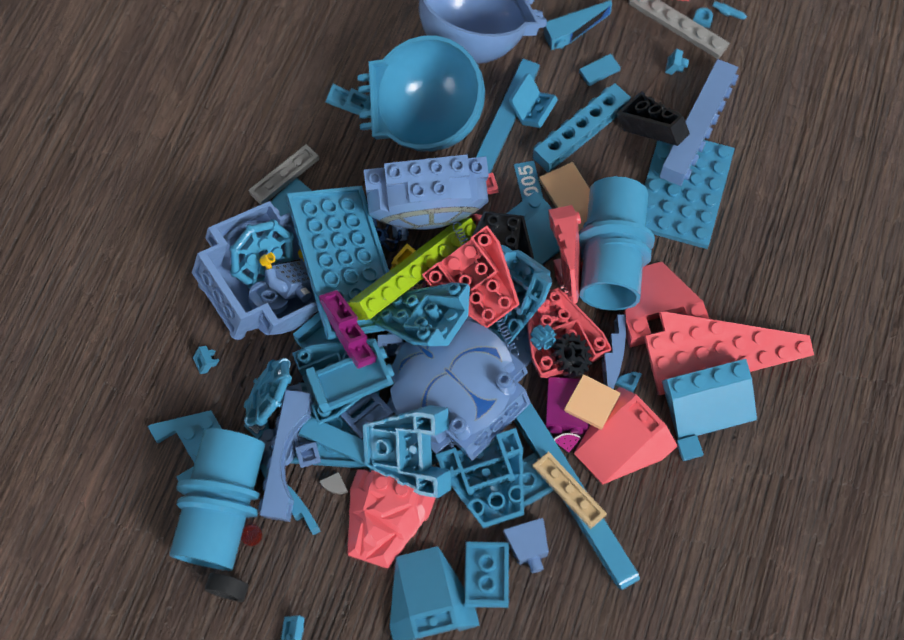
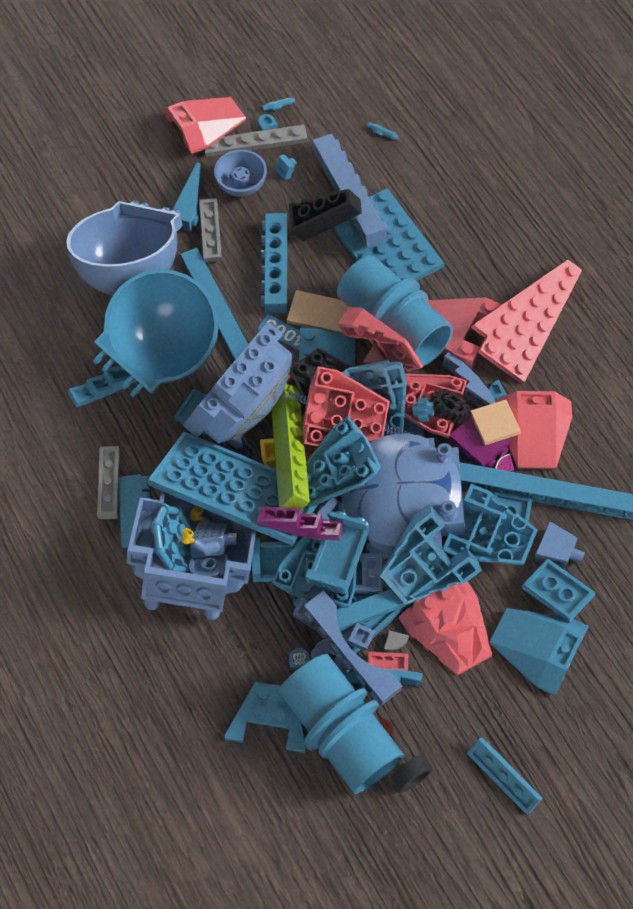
camera: 50 degrees left, 5 degrees down
(203, 359) = (208, 655): dark azure tile -> none
(267, 392) = (287, 636): dark azure plate -> none
(309, 494) = (388, 660): none -> coral plate
(530, 104) = (227, 277): dark azure bracket -> none
(564, 60) = (210, 230): none -> light grey plate
(569, 490) = (545, 488): tan tile -> none
(599, 69) = (240, 216): dark azure tile -> none
(632, 35) = (240, 172): none -> medium blue piece
(689, 448) = (578, 395): dark azure tile -> none
(711, 399) = (557, 352): dark azure slope -> none
(784, 100) = (377, 129): none -> dark azure piece

